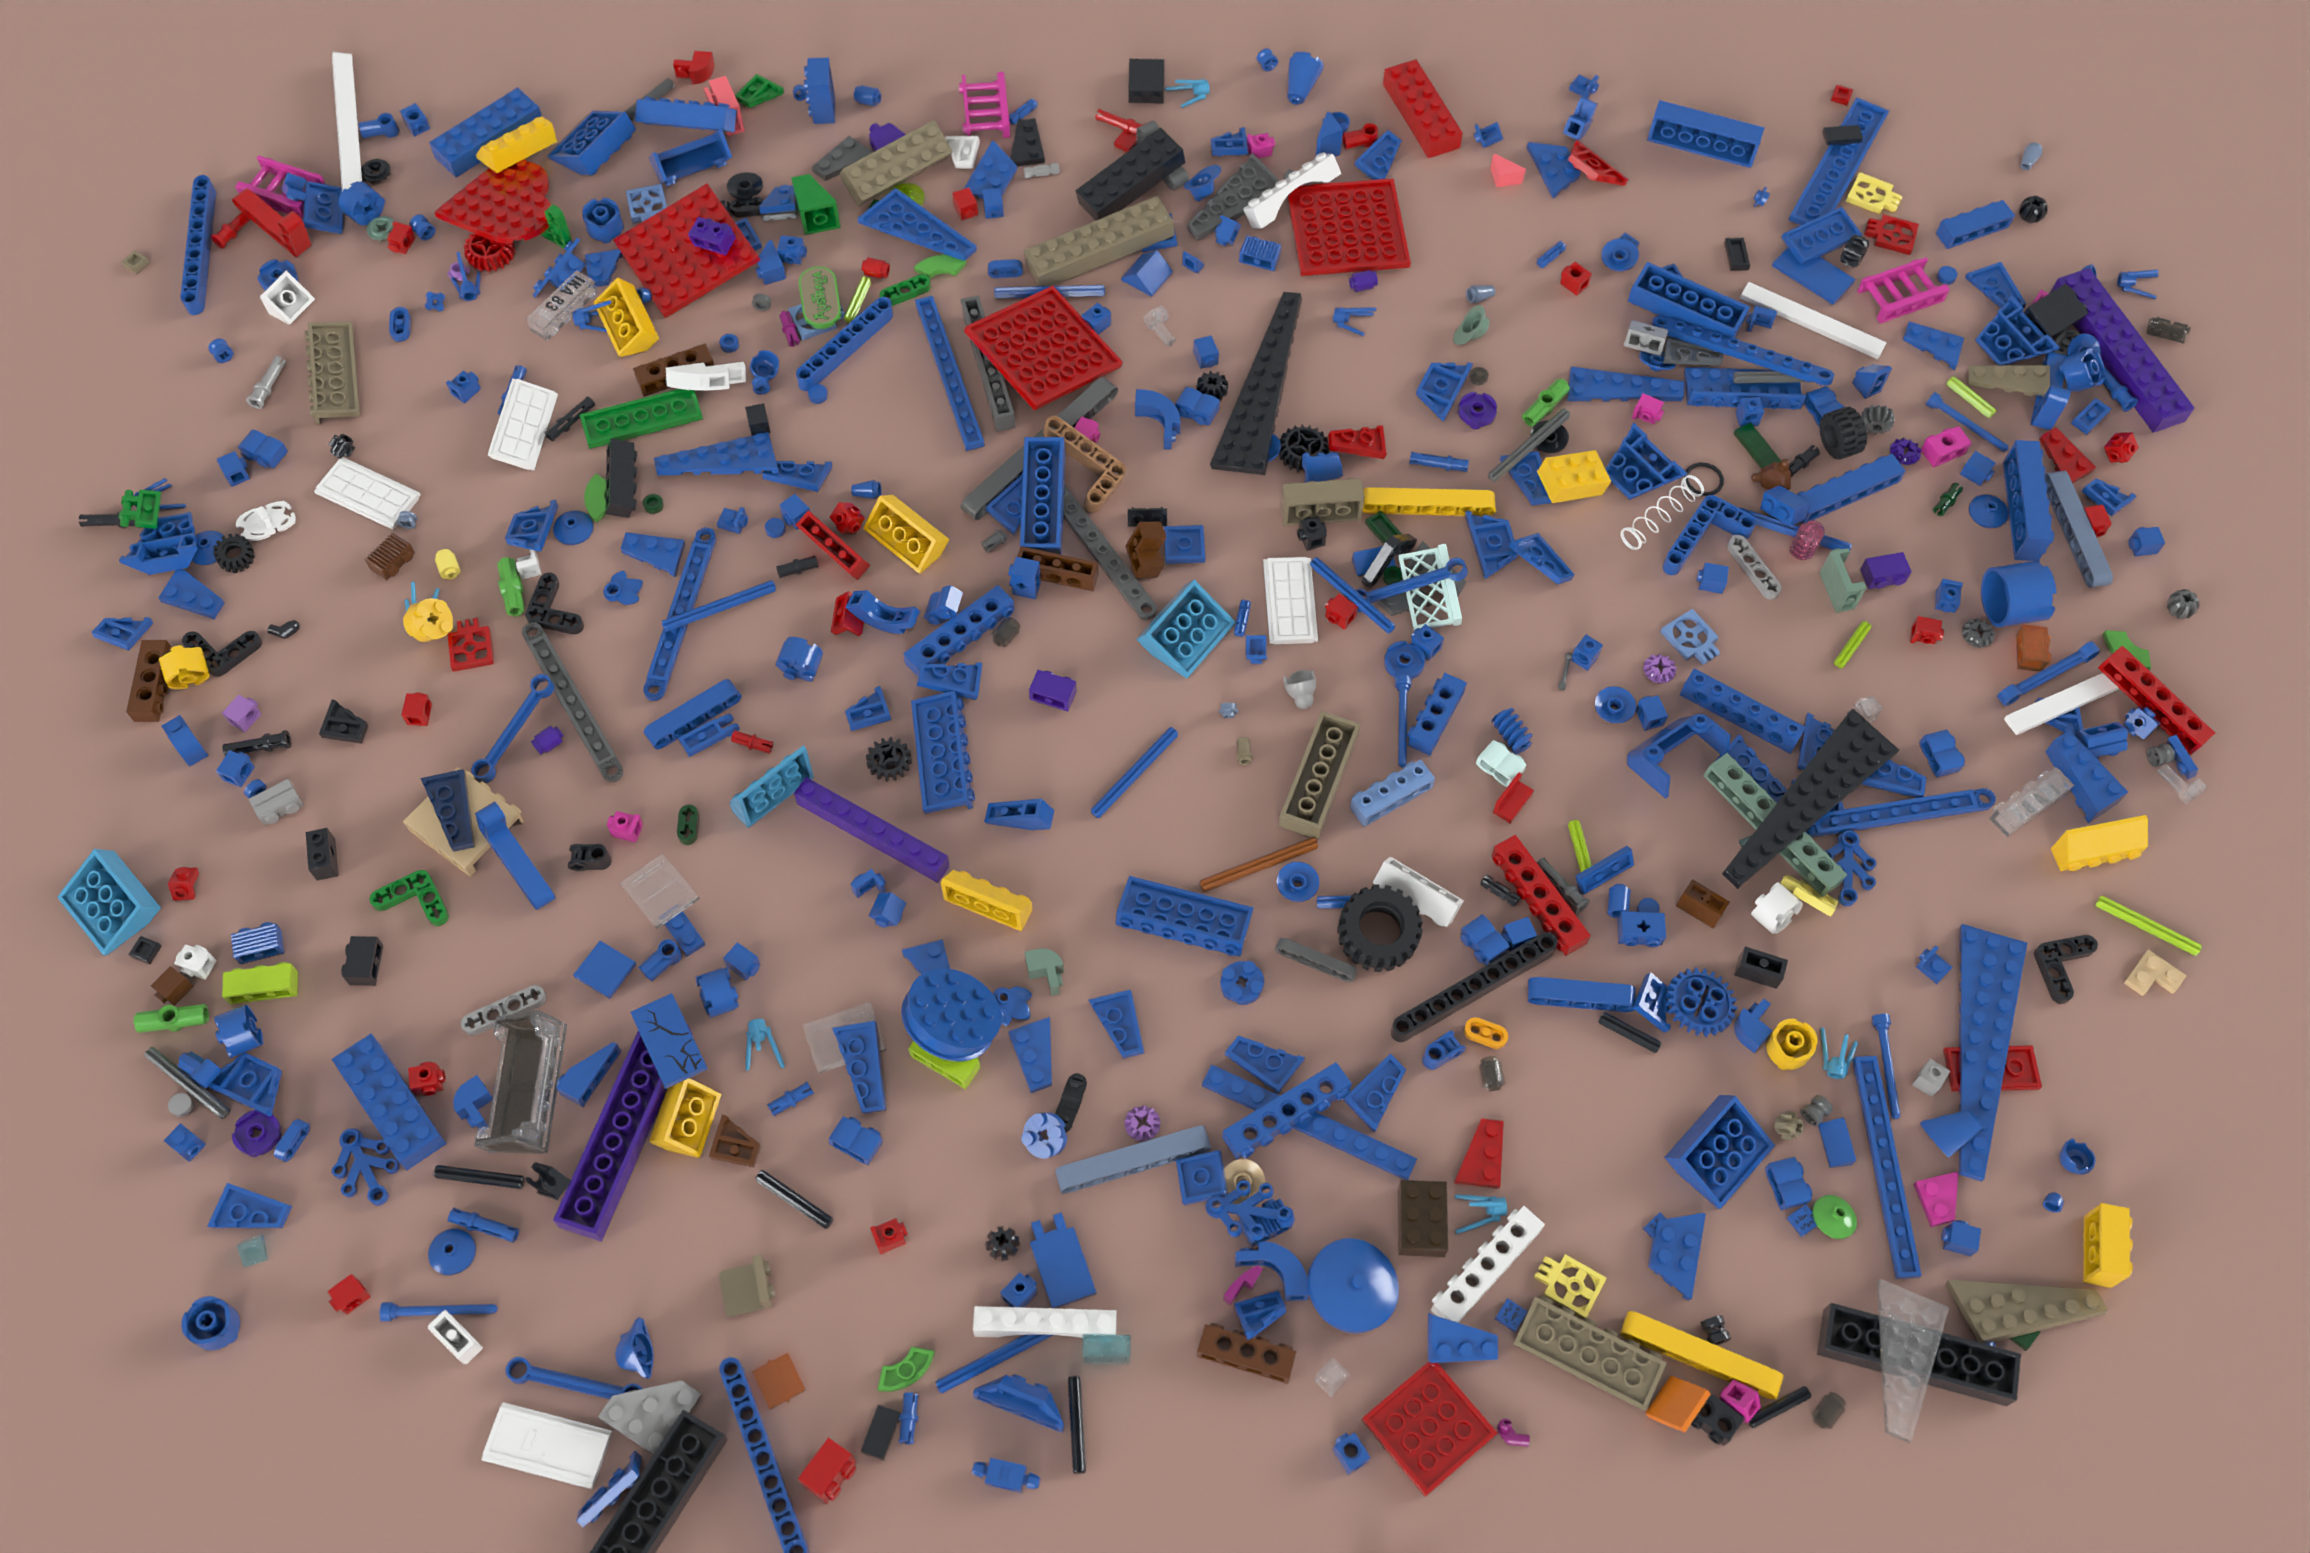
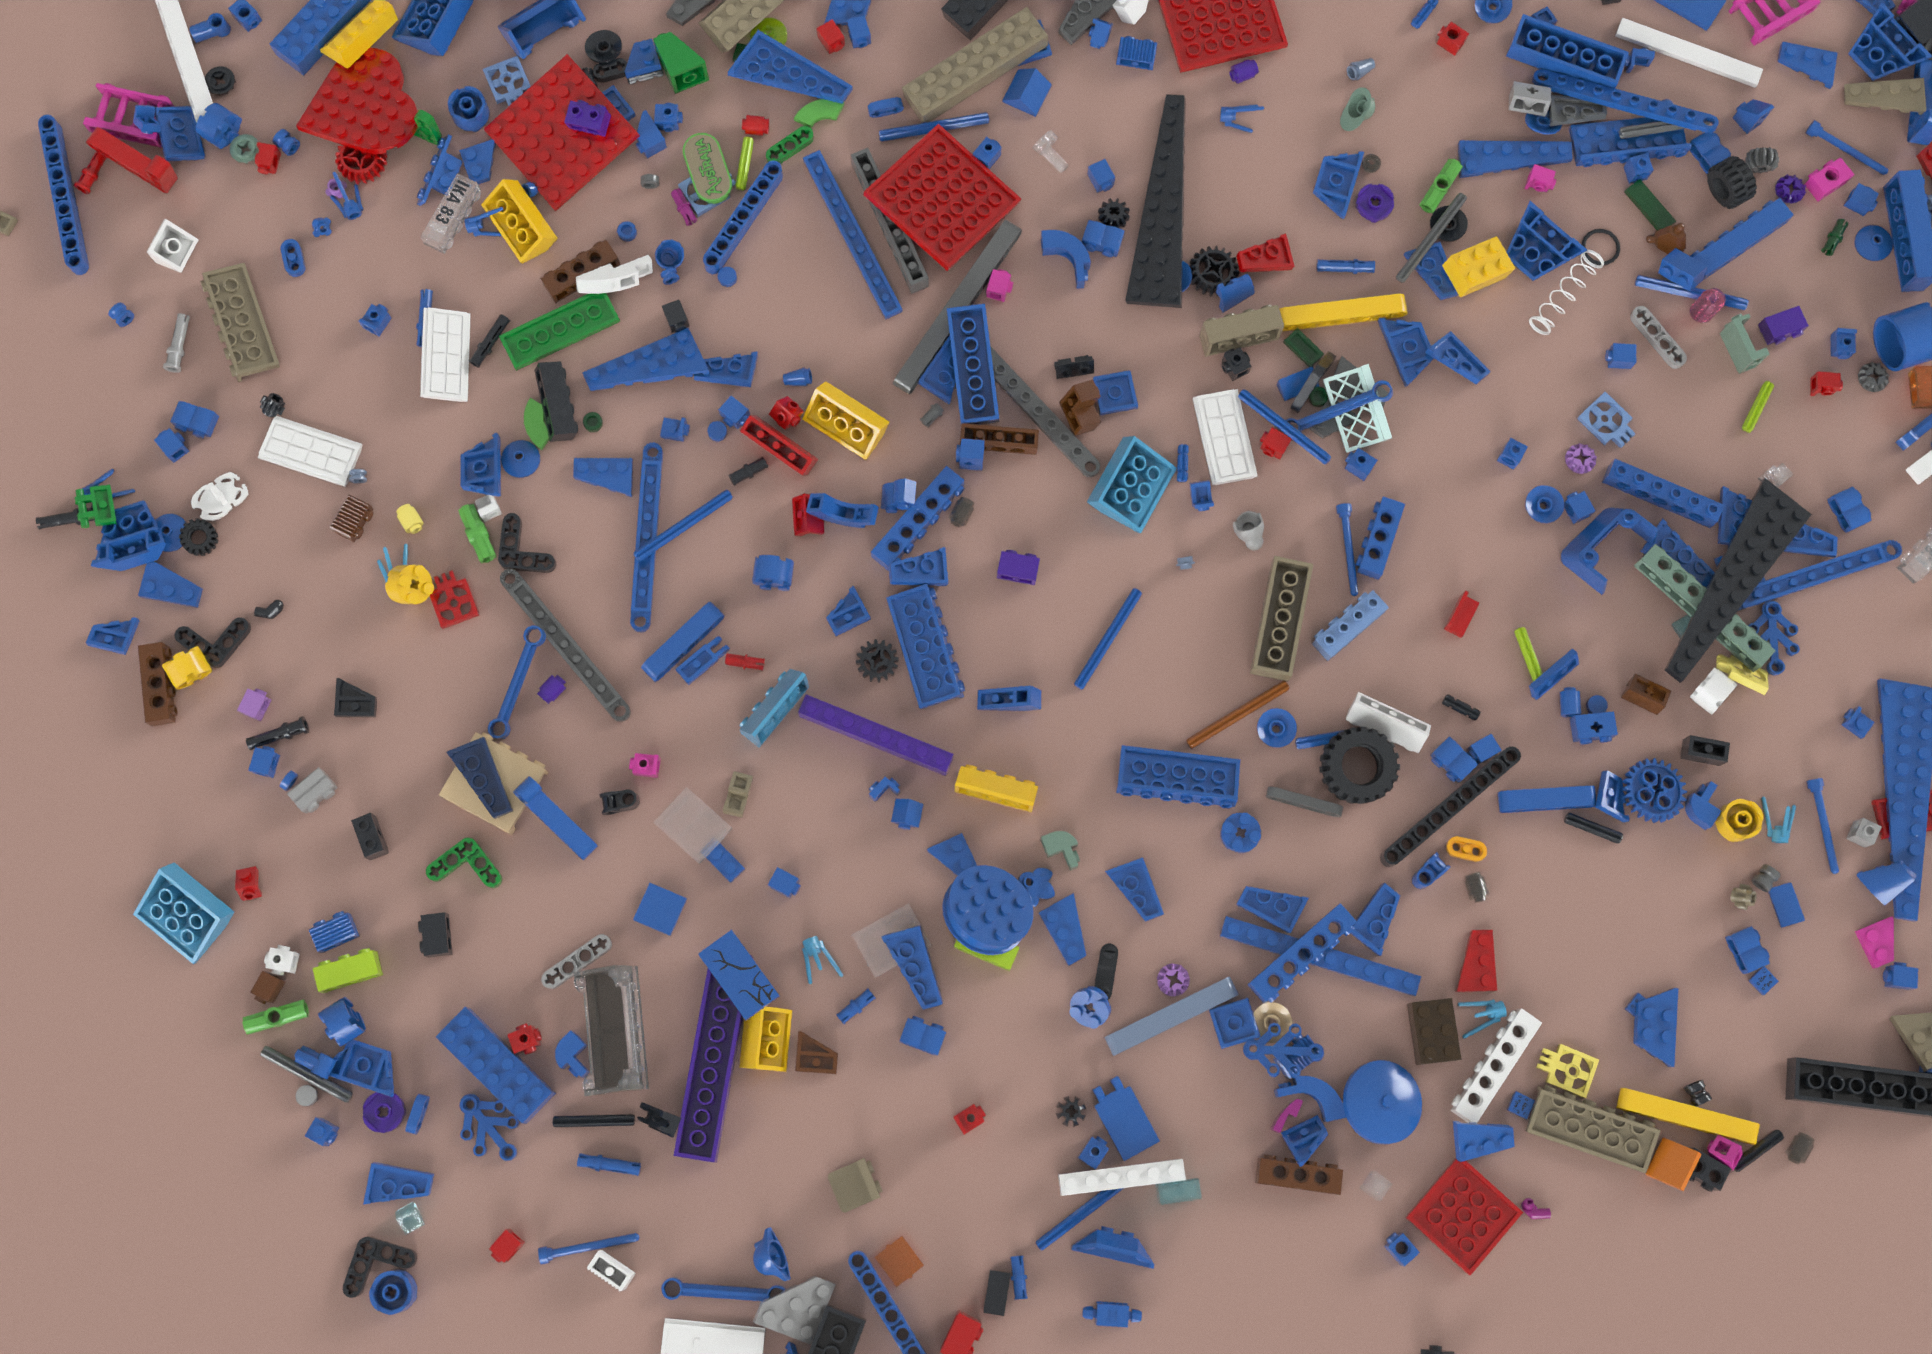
camera: 10 degrees left, 15 degrees up
(145, 950) = (230, 953): black tile -> none
(184, 740) = (208, 742): blue brick -> none
(202, 1282) = (374, 1253): none -> black beam
(272, 268) = (146, 212): blue plate -> none
(416, 709) = (420, 675): red brick -> none
(457, 1260) = (596, 1195): blue dish -> none
(585, 1076) = (666, 1015): blue slope -> none
(625, 589) = (587, 516): blue plate -> none
(659, 961) = (707, 894): blue piece -> none
(683, 824) = (698, 754): dark green beam -> none
(715, 869) = (737, 794): none -> dark tan slope
(716, 992) = (768, 918): blue brick -> none
(794, 1199) = (878, 1097): black axle -> none
(907, 1371) = (1008, 1236): bright green tile -> none
(1076, 1425) = (1163, 1260): black axle -> none
(1089, 460) = (1008, 316): medium nougat beam -> none
(1191, 262) = (1070, 73): blue slope -> none
(1244, 756) = (1206, 602): dark tan pin -> none
(1401, 649) = (1342, 475): blue plate -> none
(1500, 763) = (1446, 580): light aqua brick -> none
(1511, 730) = (1453, 545): blue piece -> none
(1552, 900) = (1509, 709): red brick -> none
(1562, 685) = (1492, 489): dark grey hinge -> none
(1567, 891) = (1523, 701): dark grey pin -> none
(1711, 511) = (1602, 305): blue beam -> none
(1720, 1150) = (1685, 927): blue slope -> none
(1802, 460) = (1693, 214): black pin -> none
(1831, 1223) = (1783, 976): bright green dish -> none
(1886, 1168) = (1830, 920): blue plate -> none
(1909, 1344) = (1866, 1089): clear wing -> none
(1971, 397) = (1848, 118): lime axle -> none

